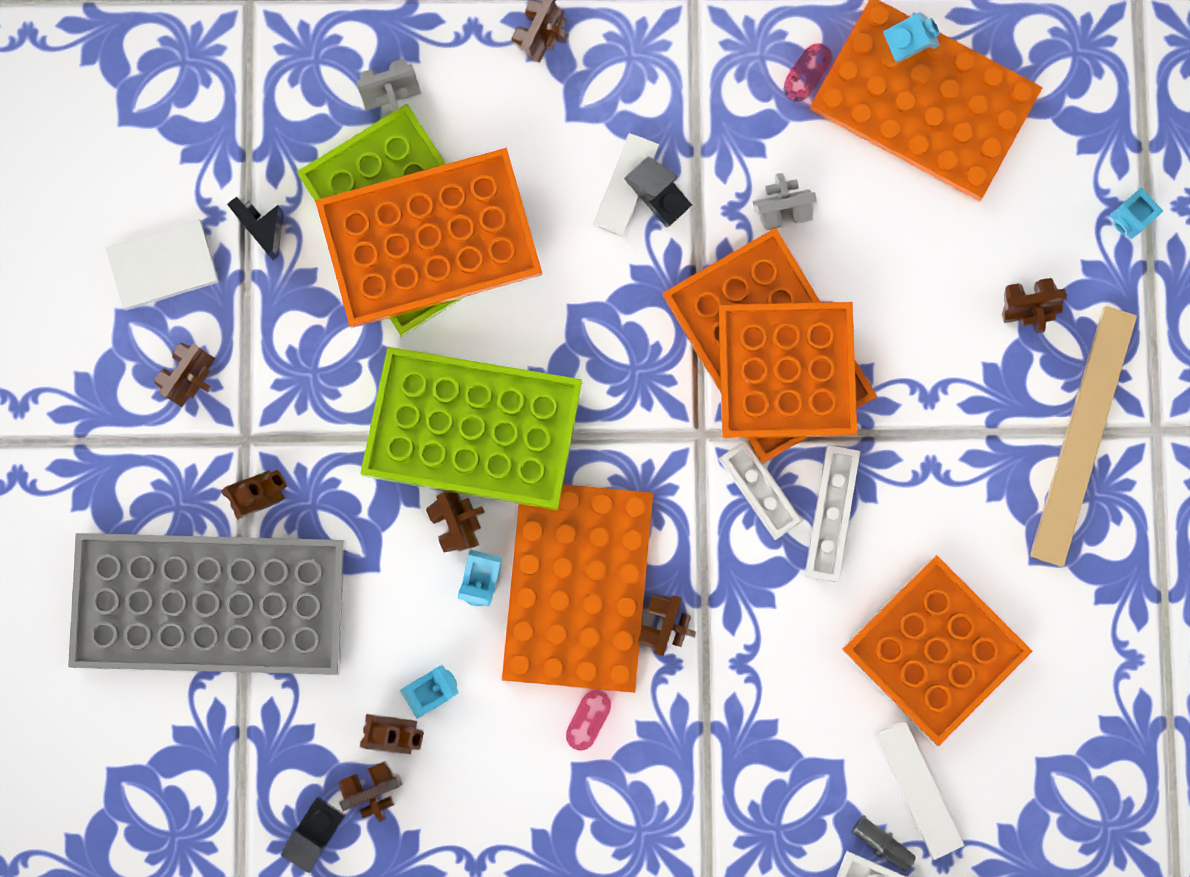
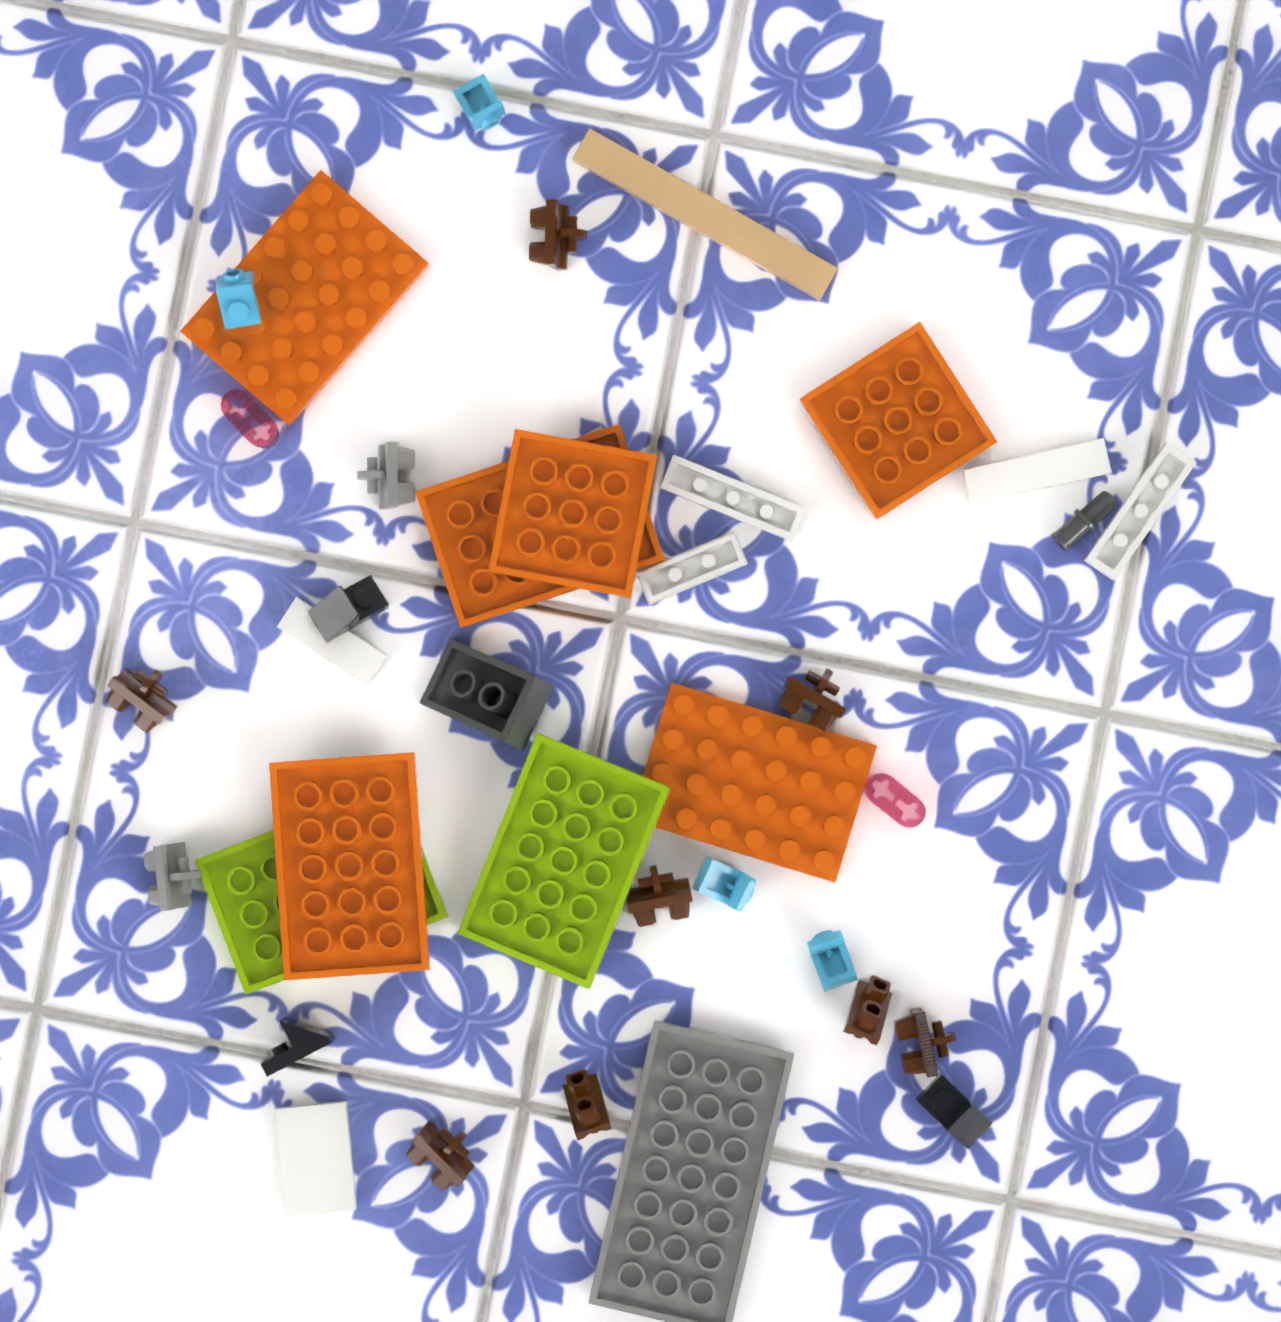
camera: 85 degrees left, 5 degrees up
(607, 329) = (486, 694): none -> dark grey slope

